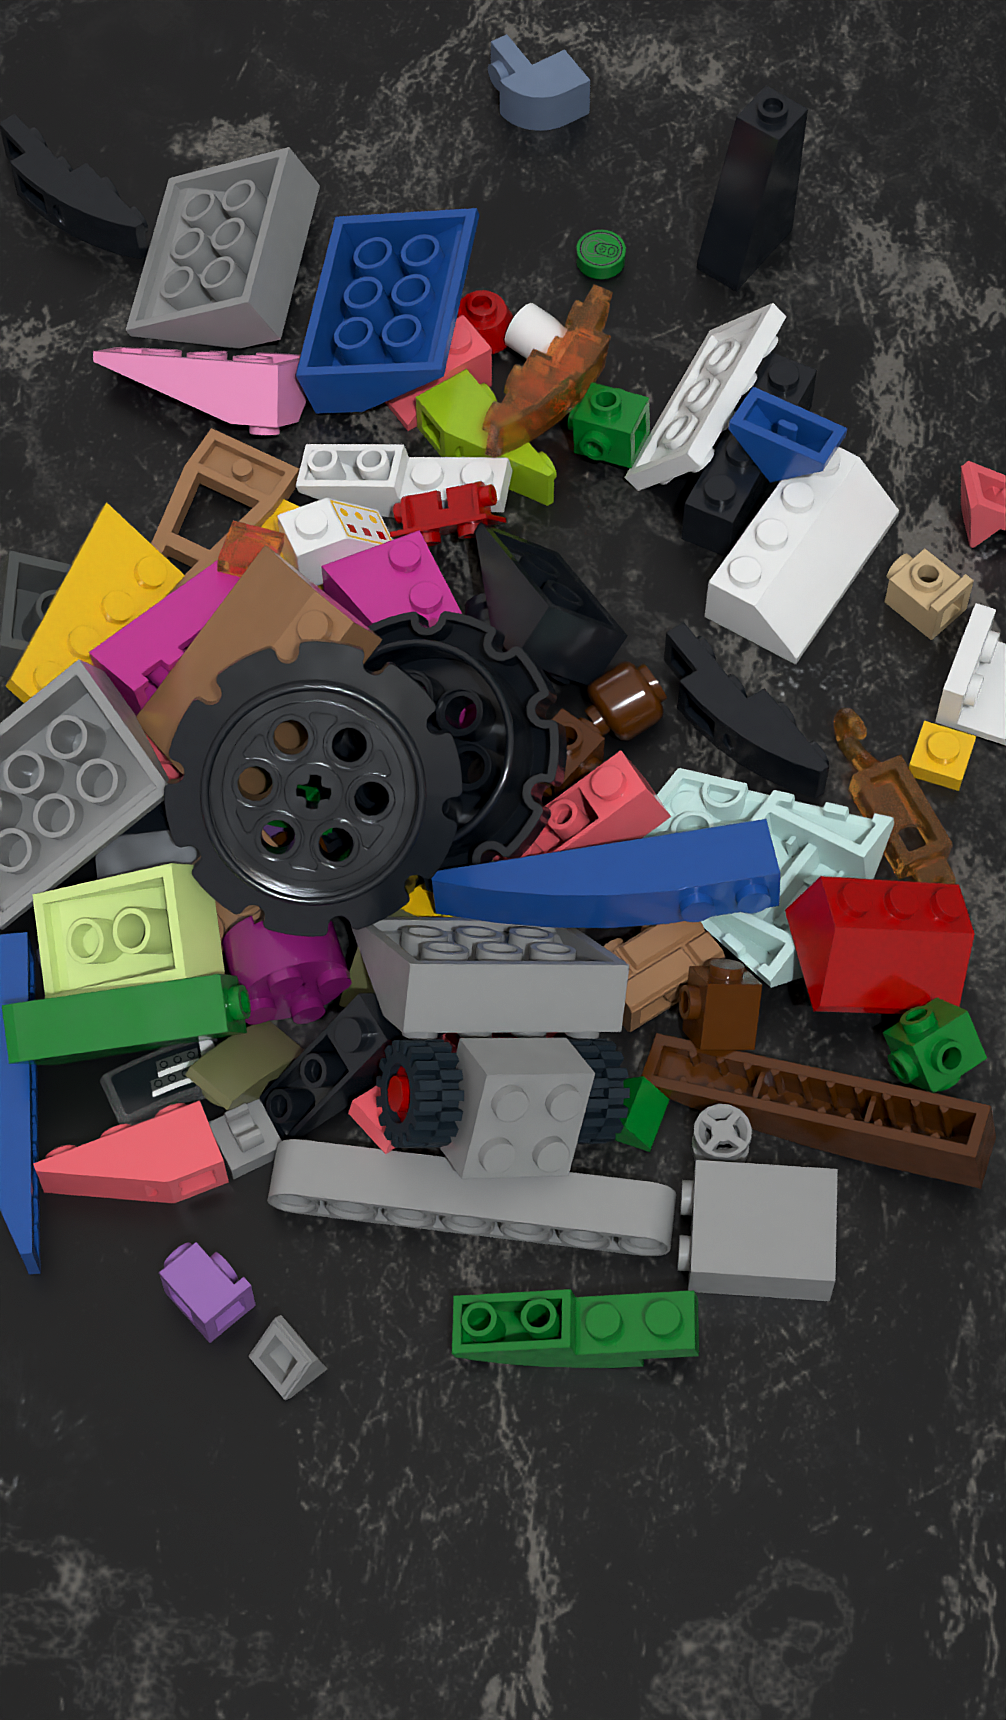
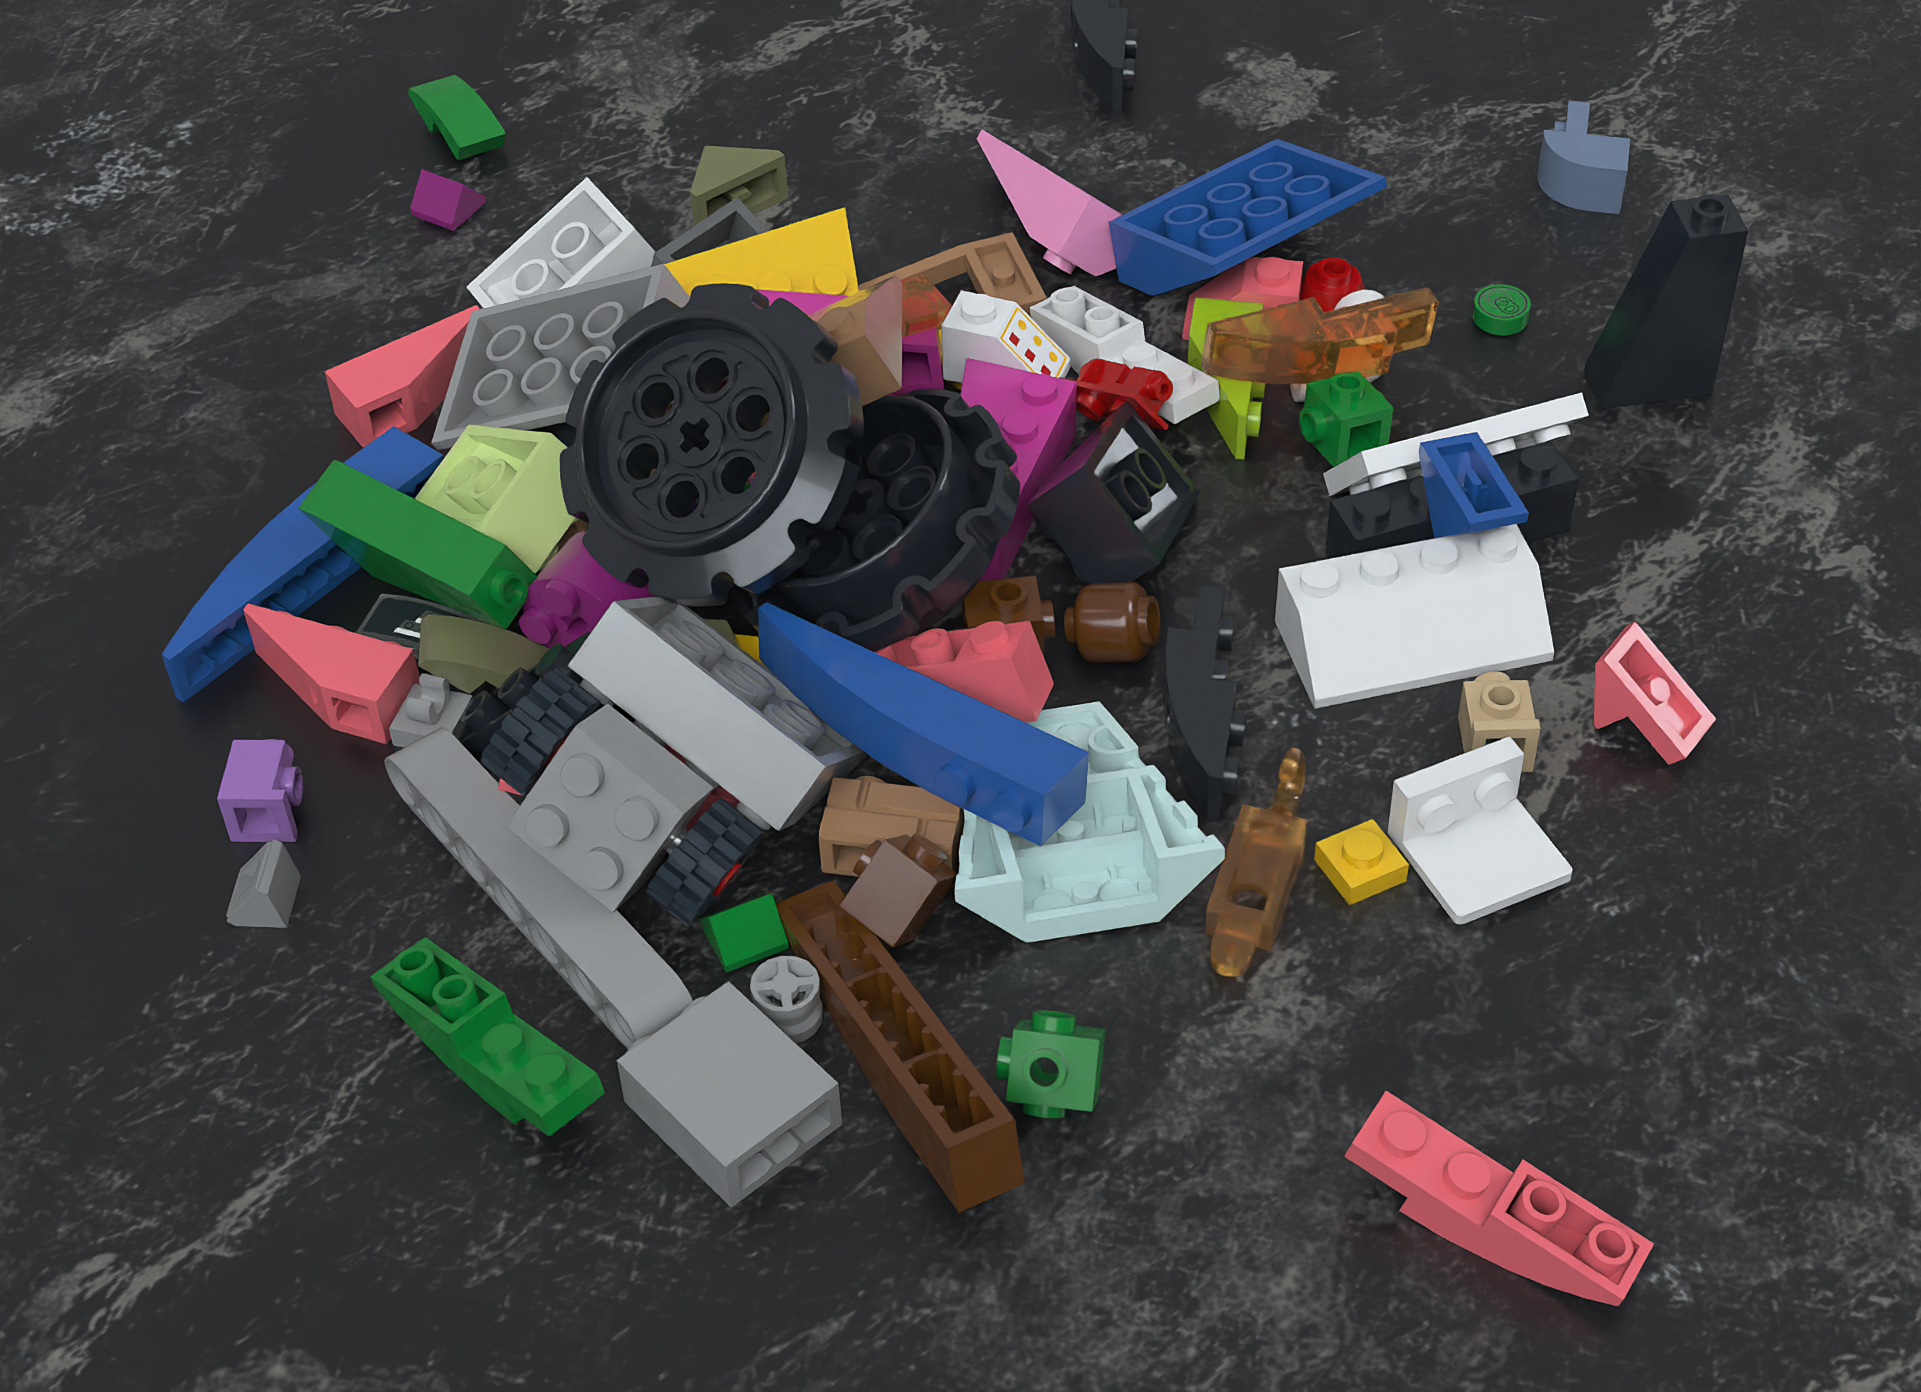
camera: 45 degrees right, 15 degrees down
(226, 253) = (1178, 132): light grey slope -> none
(881, 943) = (1094, 940): red slope -> none

